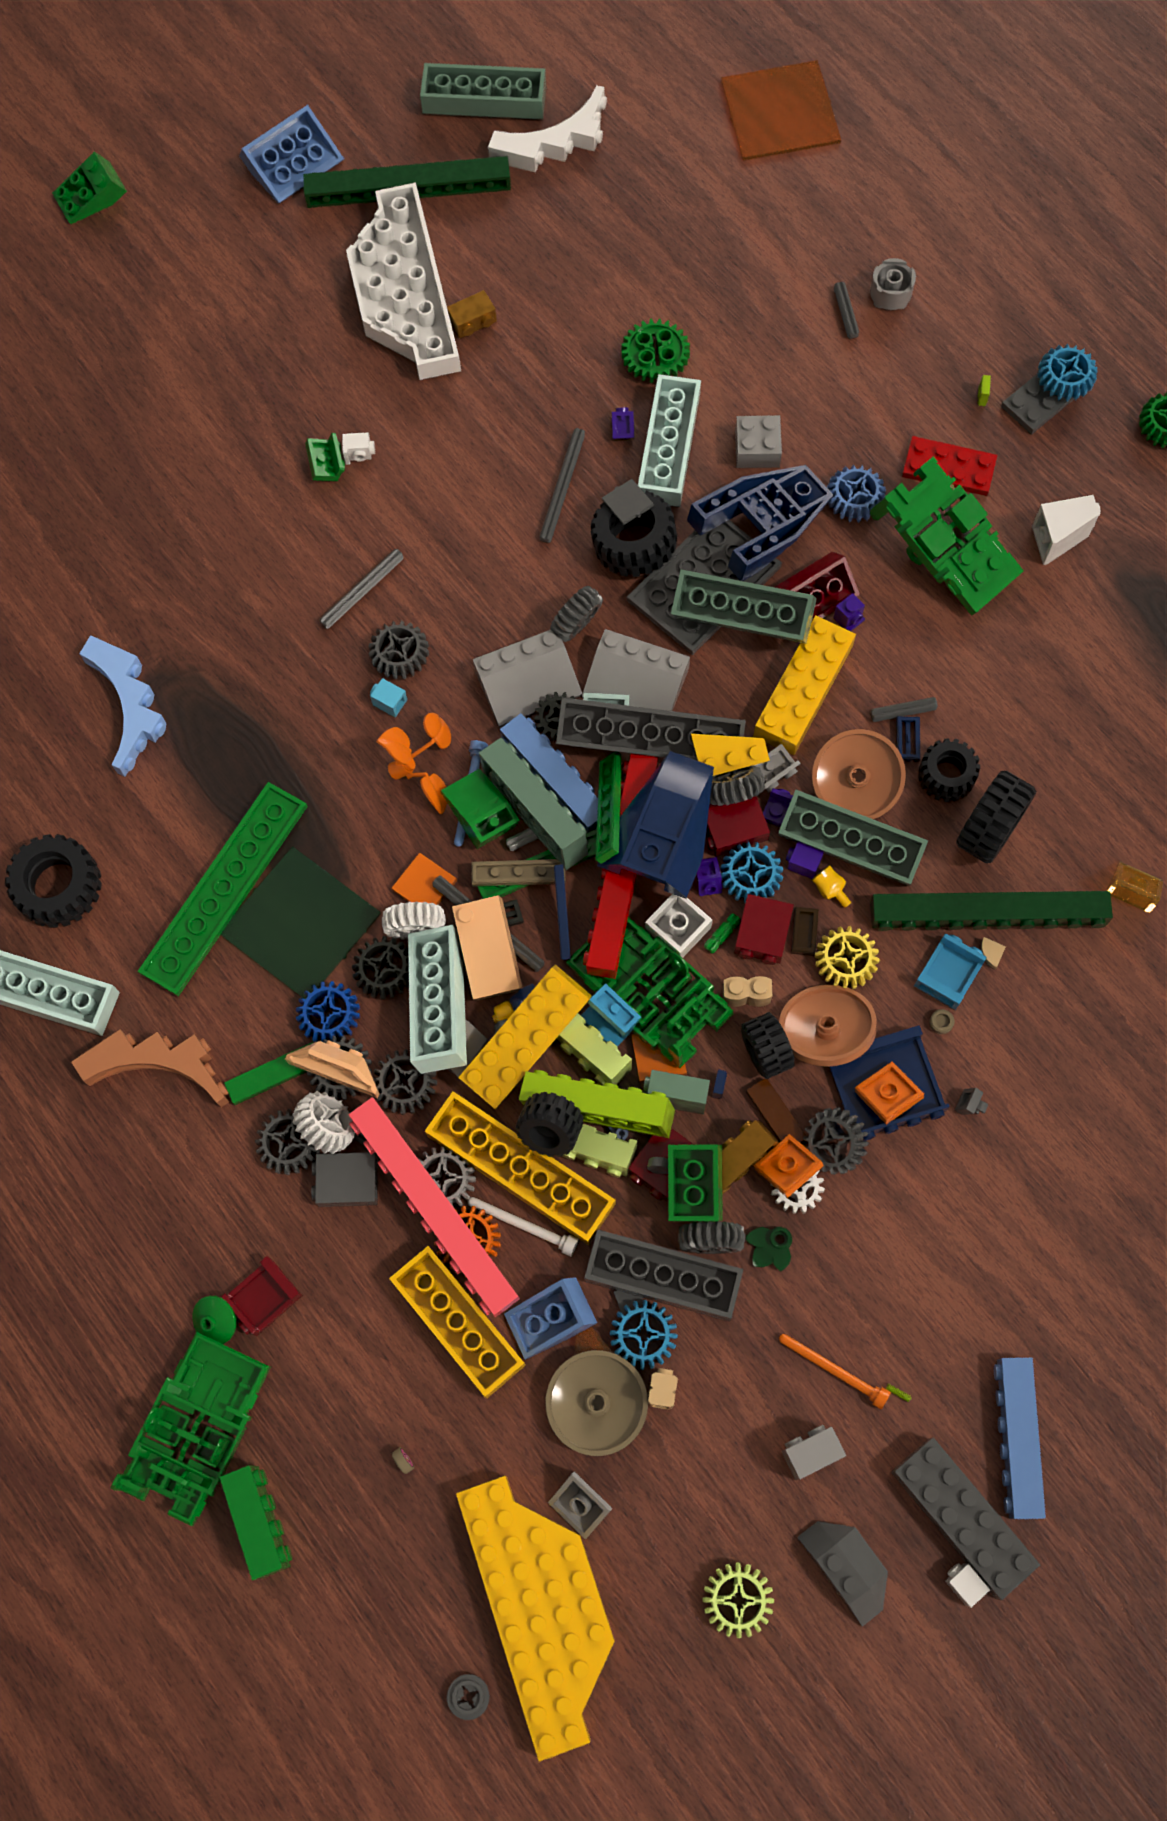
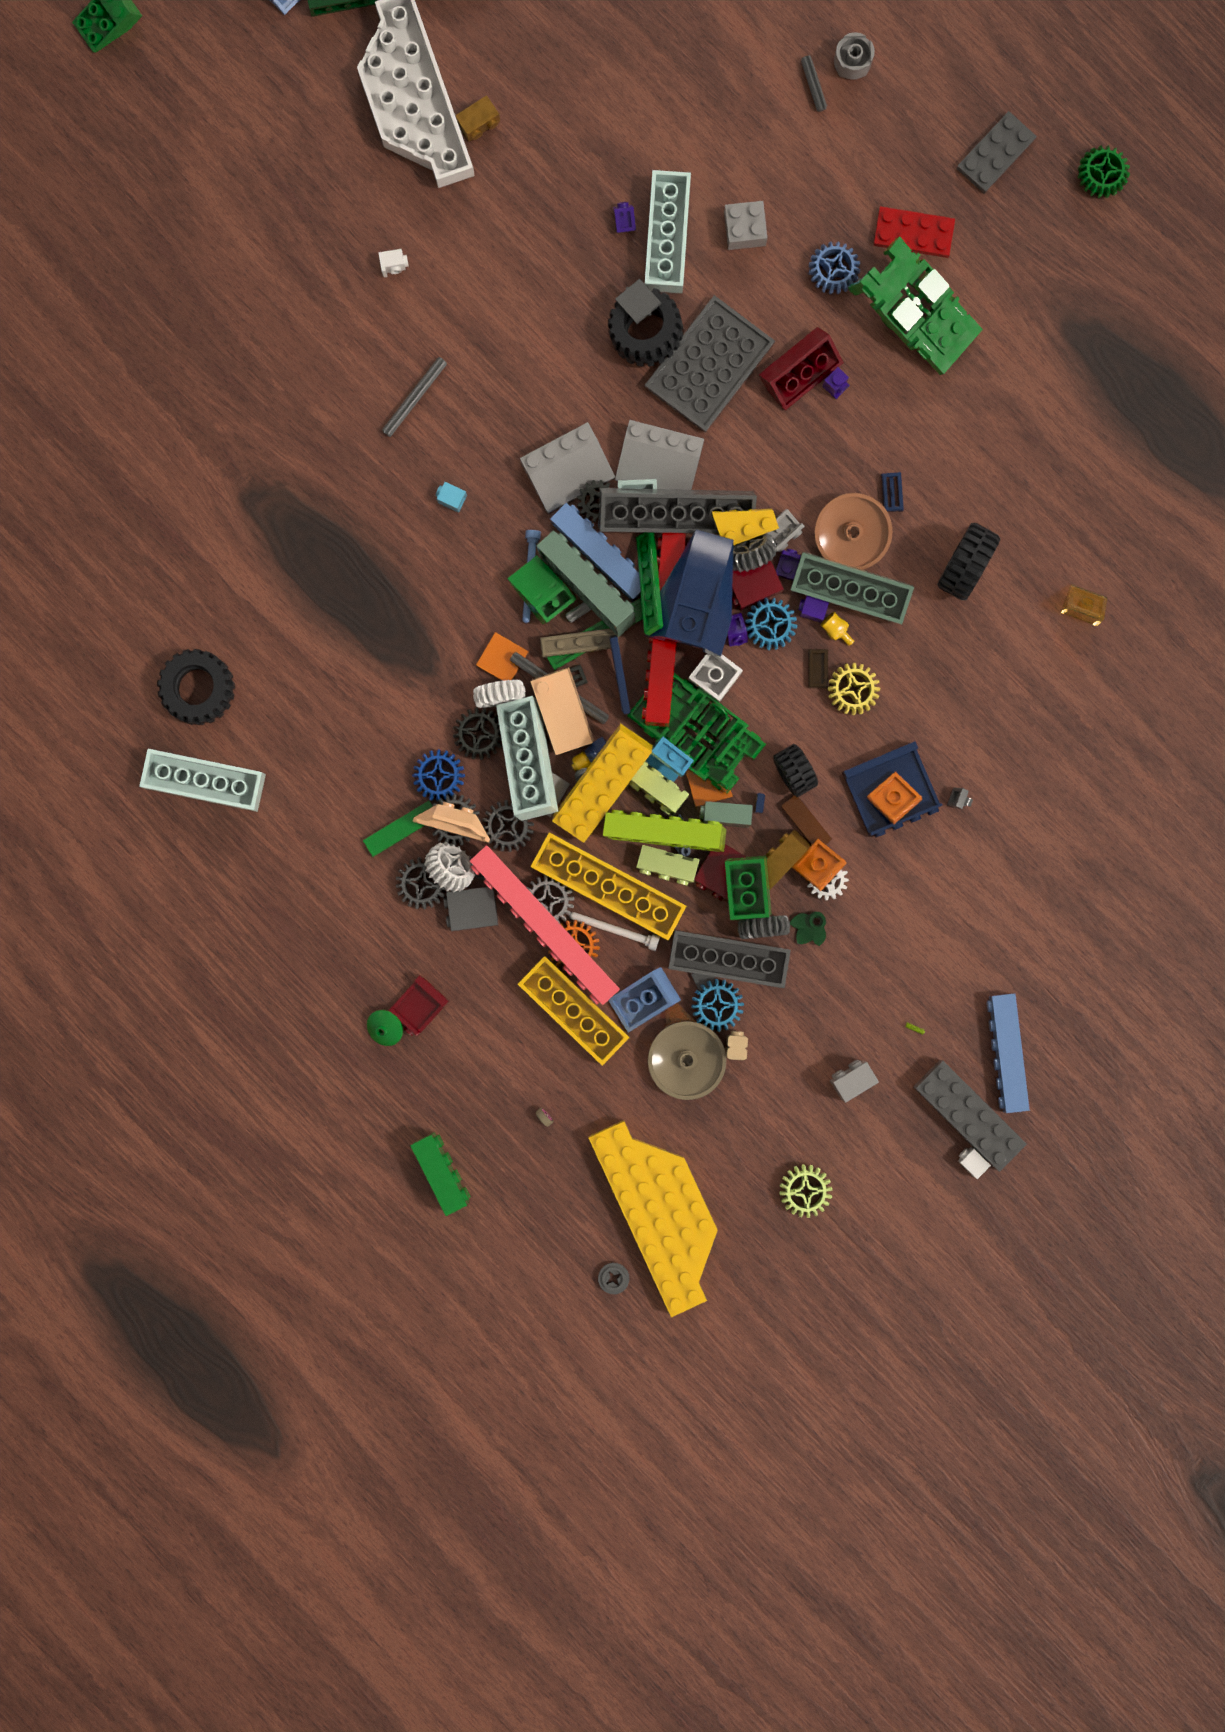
camera: 10 degrees left, 15 degrees up
(121, 1054) = (275, 826): nougat arch -> none
(135, 696) = (243, 539): light blue arch -> none
(216, 1384) = (395, 1076): green piece -> none
(222, 889) = (337, 677): green plate -> none
(300, 923) = (404, 701): clear green piece -> none
(325, 458) = (365, 275): green bracket -> none
(398, 745) = (470, 552): orange plant -> none
(404, 638) = (460, 447): dark grey gear -> none
(549, 1124) = (630, 854): black tyre -> none
(562, 485) = (577, 281): dark grey axle -> none
(576, 613) = (604, 408): dark grey gear -> none
(580, 1505) = (682, 1135): light grey slope -> none
(636, 352) = (629, 145): green gear -> none
(658, 1165) = (717, 875): dark grey tile -> none
(722, 933) = (751, 677): green axle -> none
(743, 606) = (746, 391): sand green brick -> none
(754, 991) = (781, 725): tan brick -> none
(763, 929) = (784, 671): dark red brick -> none
(775, 501) = (766, 287): dark blue wedge -> none
(804, 685) = (802, 453): yellow brick -> none
(829, 1025) = (842, 748): nougat dish -> none
(840, 1162) = (853, 826): dark grey gear -> none
(848, 1566) = (885, 1158): dark grey wedge -> none
(877, 1395) = (899, 1032): orange piece -> none
(903, 709) = (887, 466): dark grey axle -> none
(941, 1021) = (933, 734): dark tan tile -> none
(950, 971) = (937, 691): dark azure panel -> none
(952, 753) = (934, 504): black tyre -> none
(984, 390) = (940, 156): lime tile -> none
(991, 909) = (967, 637): dark green brick -> none
(992, 951) = (970, 672): tan tile -> none
(1064, 525) = (1014, 285): white slope -> none
(1073, 383) = (1025, 143): dark azure gear -> none

